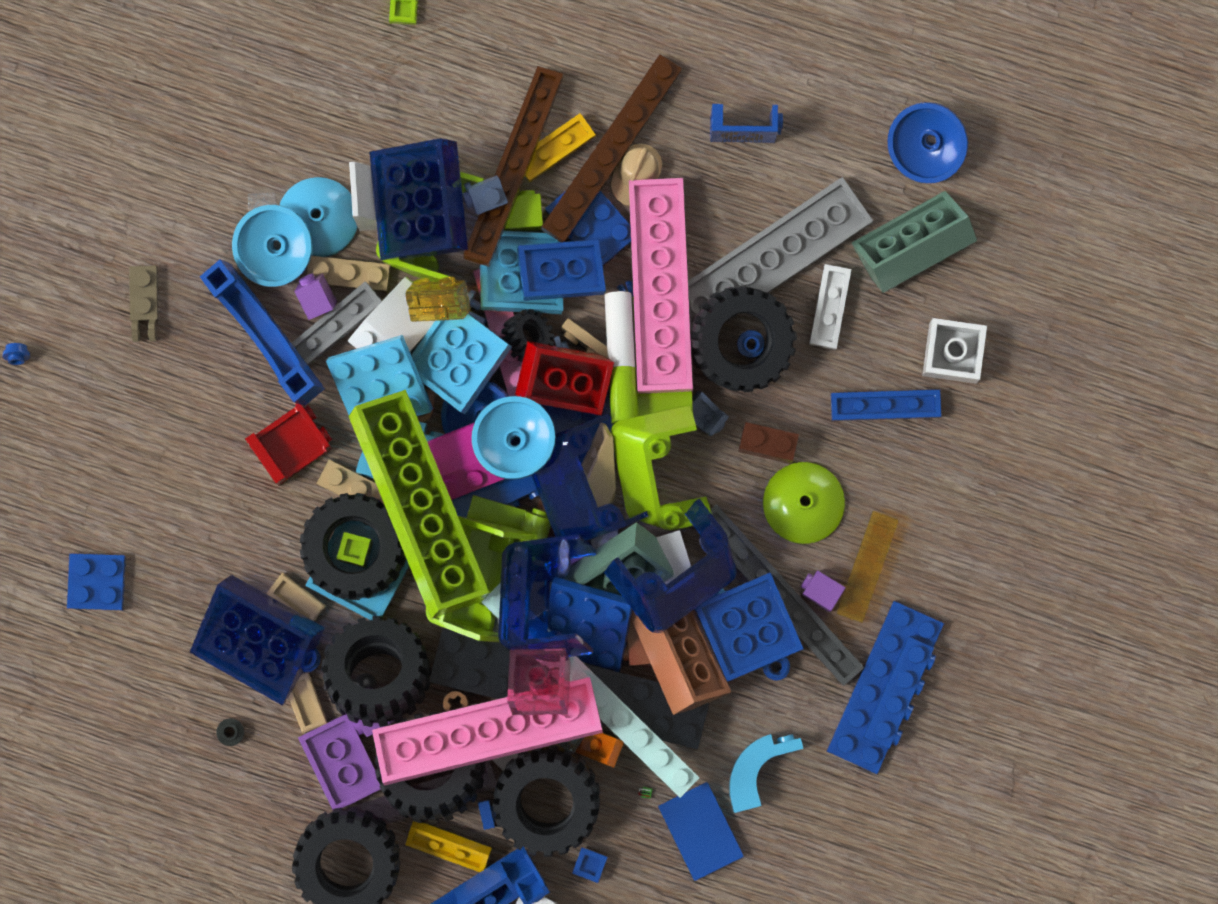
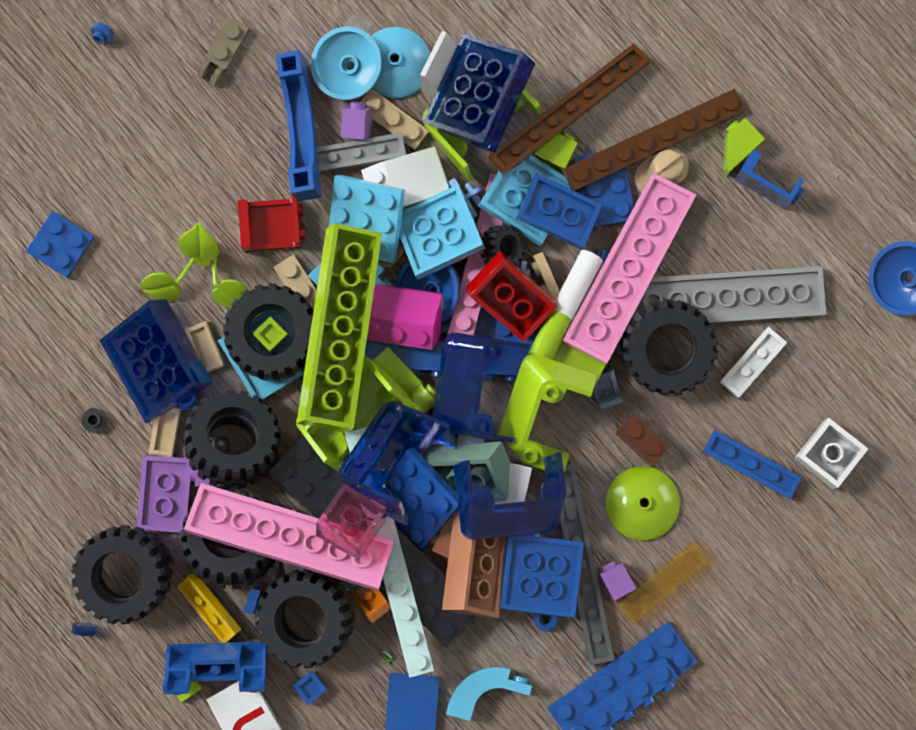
camera: 30 degrees right, 0 degrees up
(241, 505) = (203, 250): none -> lime plant
(437, 300) = (448, 178): clear yellow brick -> none
(447, 706) = (272, 498): medium nougat bush -> none
(484, 195) = (533, 118): sand blue bracket -> none
(510, 419) = (440, 303): medium azure dish -> none
(559, 146) = (614, 115): yellow plate -> none
(600, 467) = (498, 382): tan slope -> none
(695, 105) = (739, 144): none -> lime slope
(742, 341) = (667, 349): blue plate -> none
(914, 241) = (850, 349): sand green slope -> none

